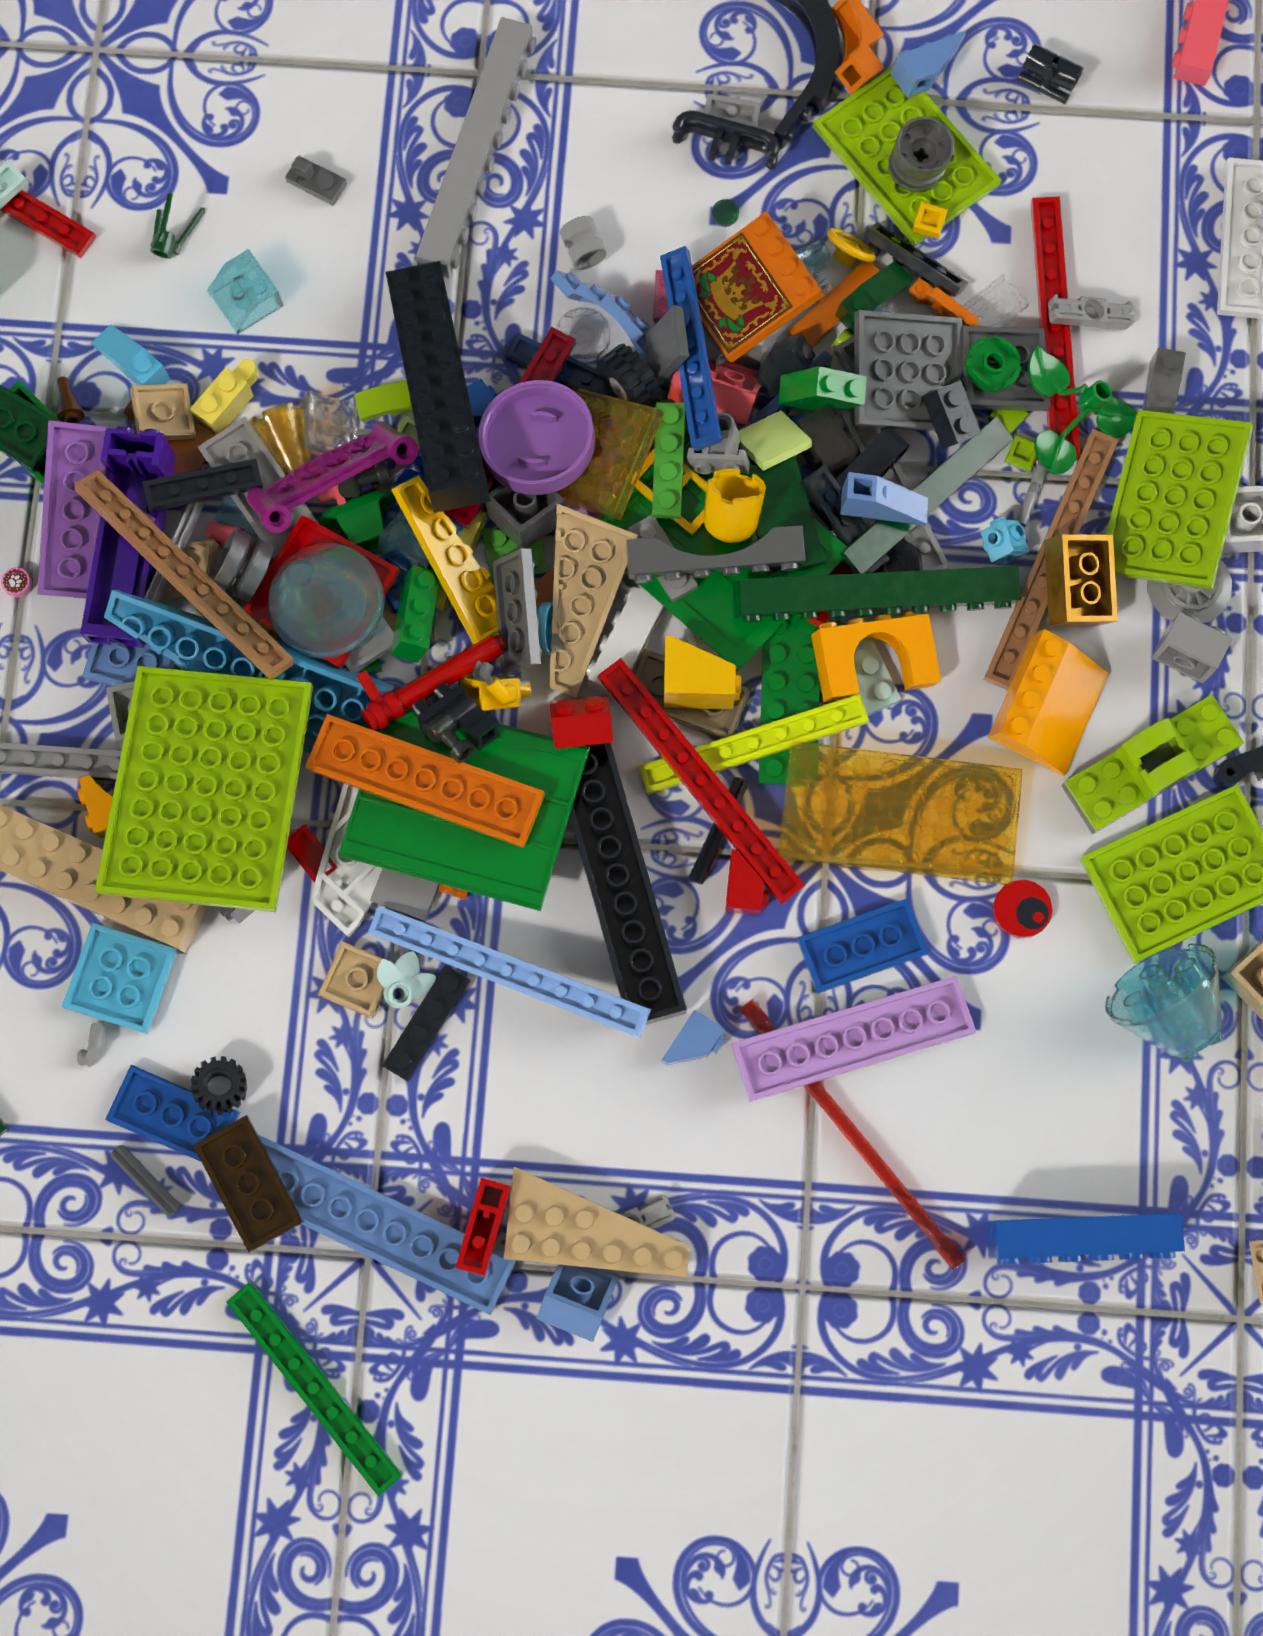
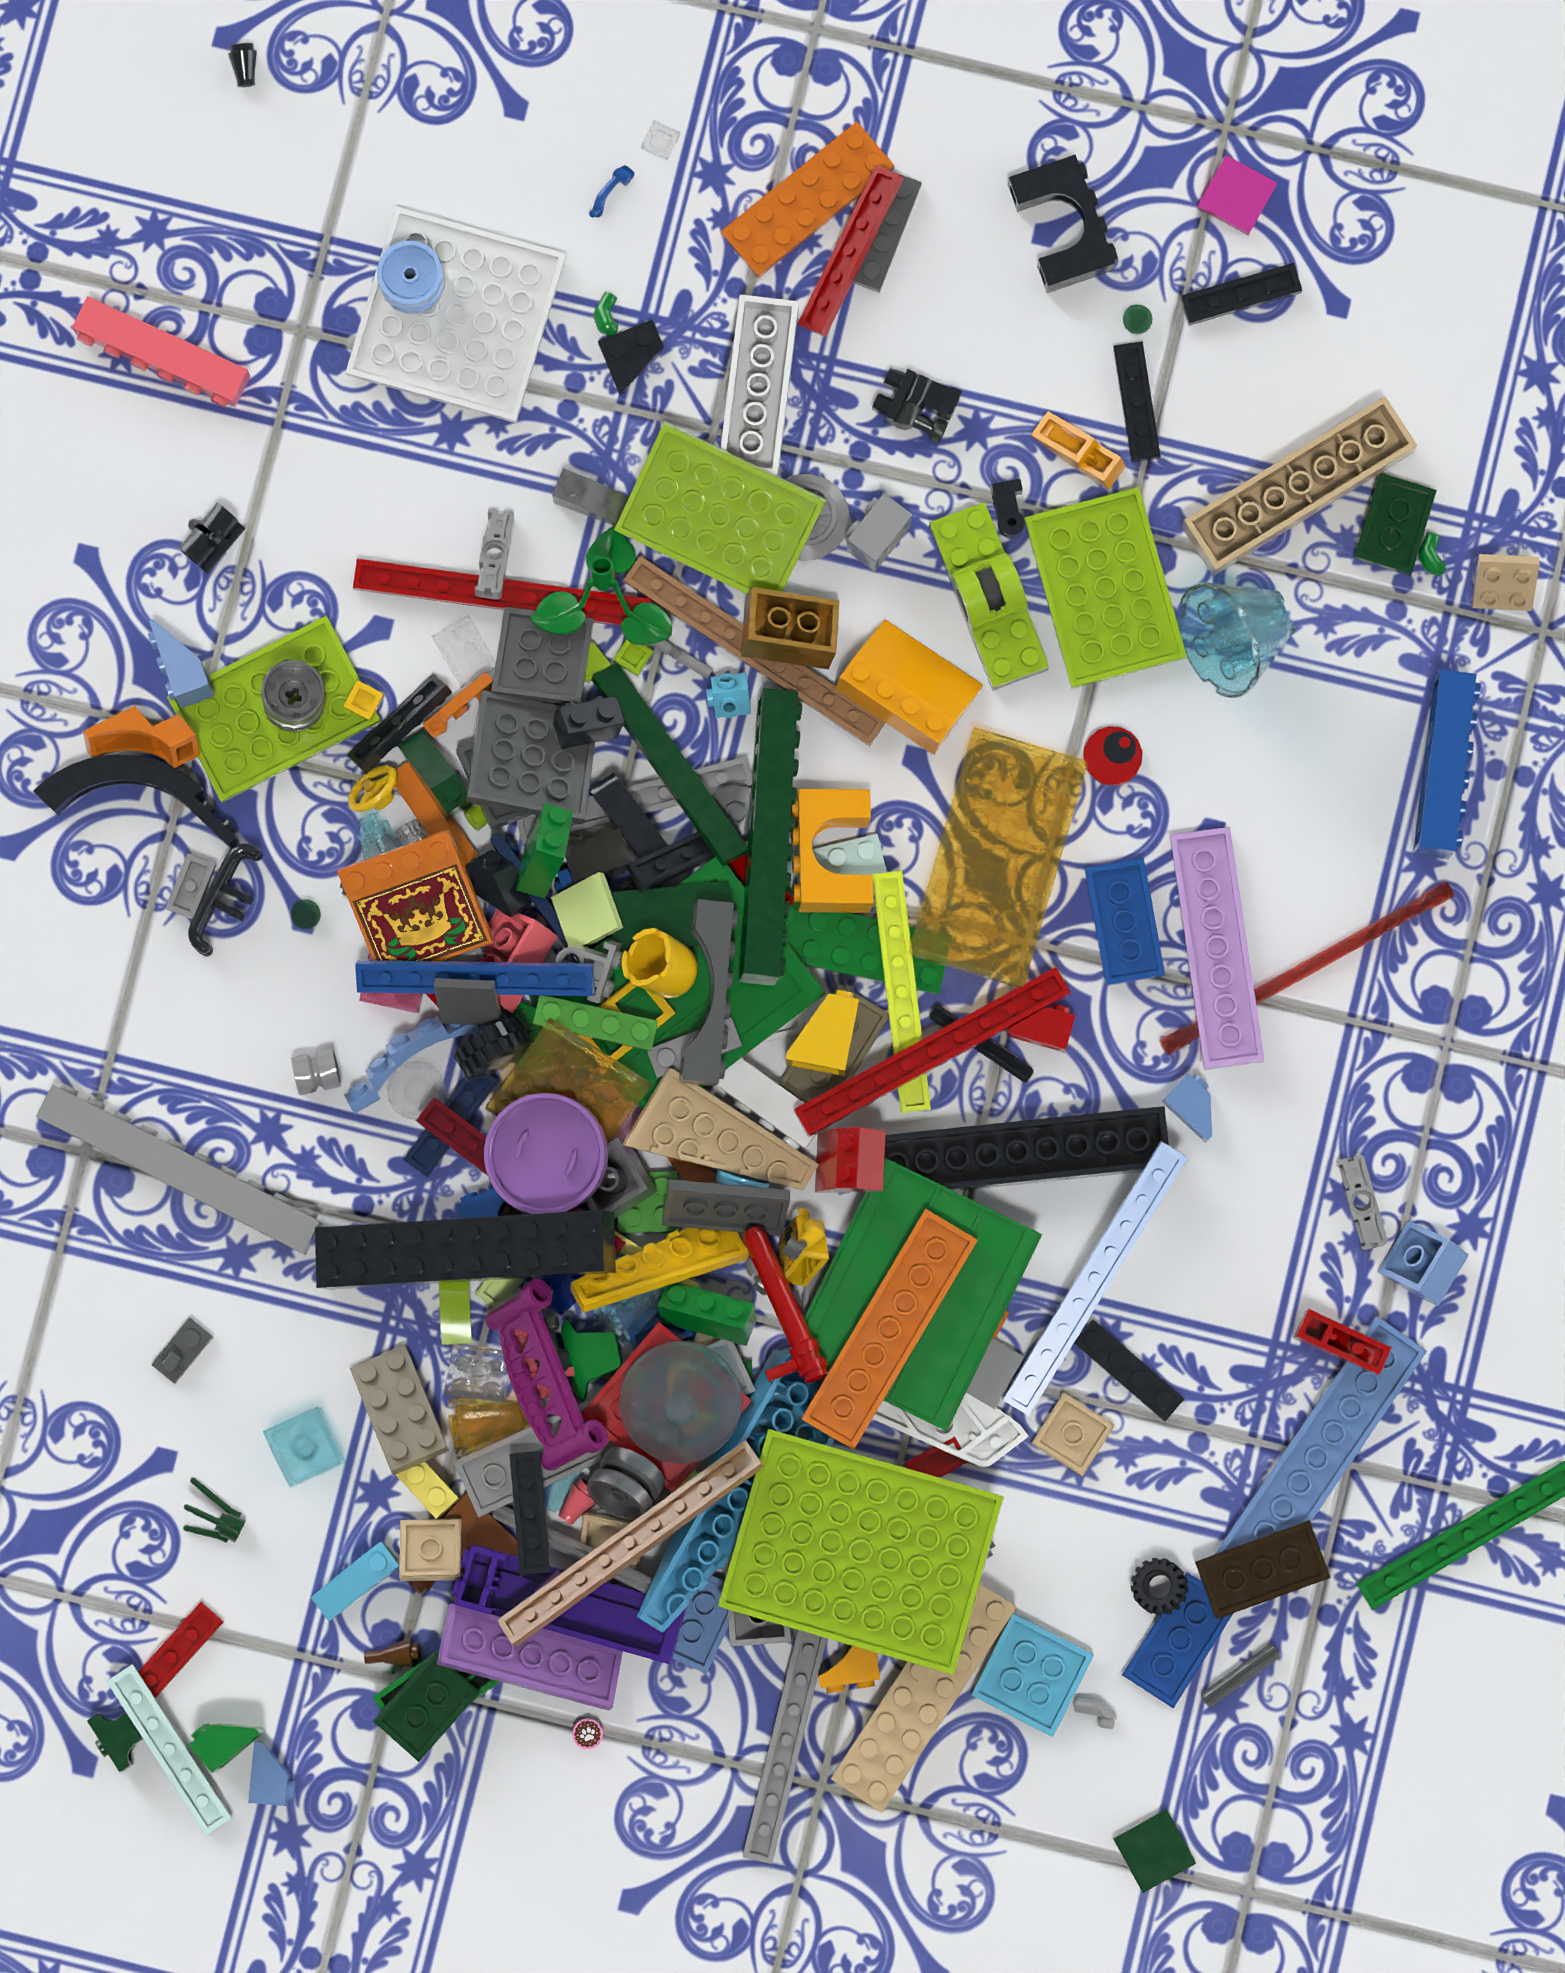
camera: 80 degrees left, 5 degrees up
(286, 363) = (399, 1409): none -> dark tan plate
(403, 975) = (1078, 1384): light aqua plate -> none
(455, 712) = (826, 1287): black hips -> none
(568, 1230) = (1358, 1261): tan wing -> none
(882, 500) = (679, 812): medium blue slope -> none
(986, 377) = (540, 685): green tile -> none

